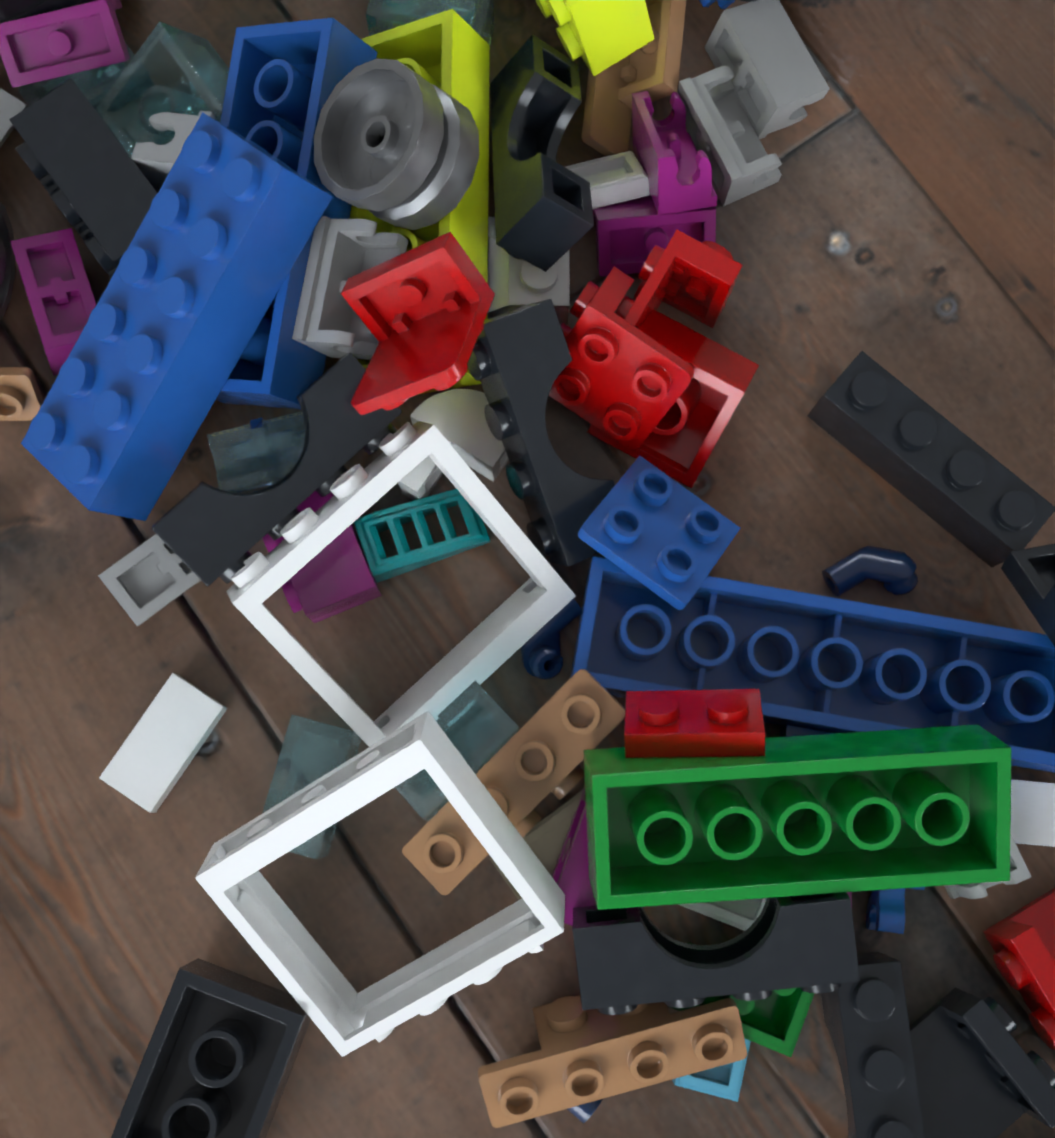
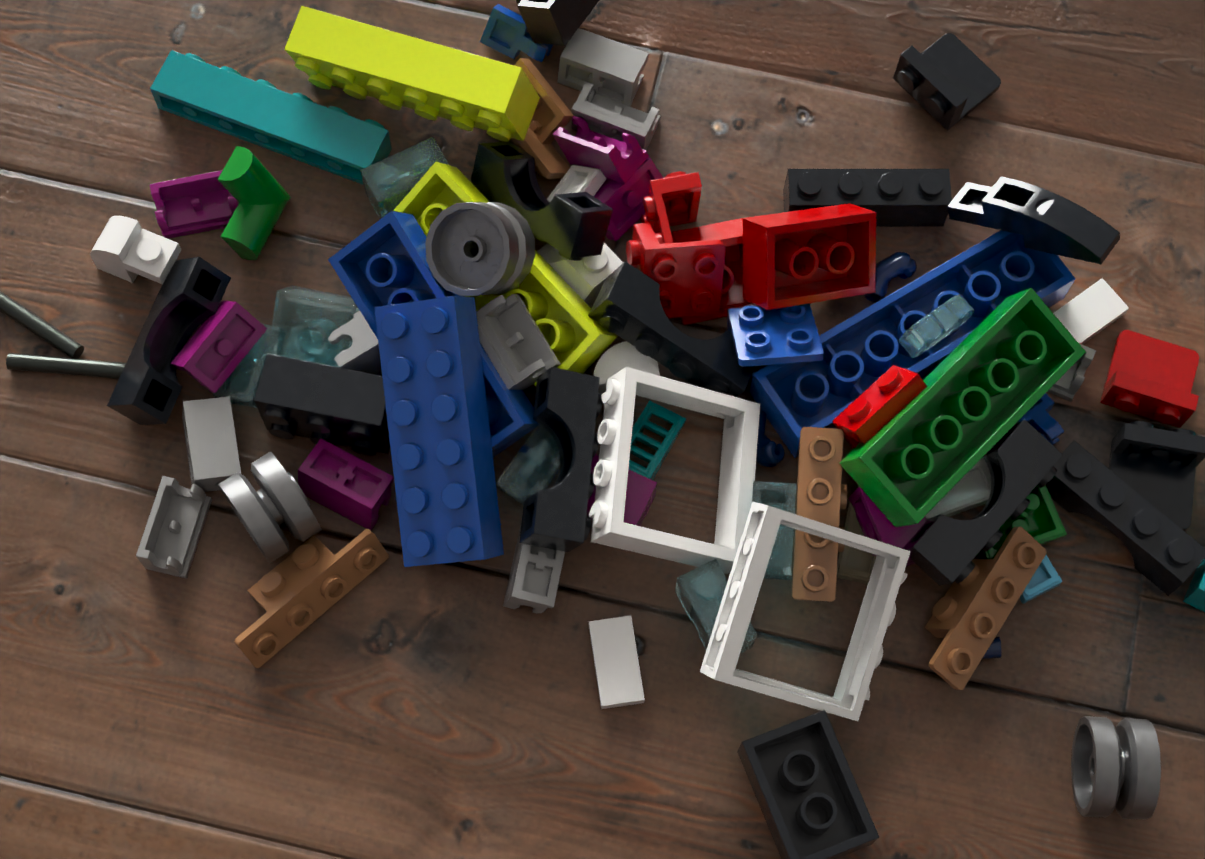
camera: 40 degrees left, 10 degrees down
(426, 318) = (577, 323): red bracket -> none
(787, 473) = (809, 256): none -> red brick
(856, 686) = (936, 325): none -> clear light blue beam

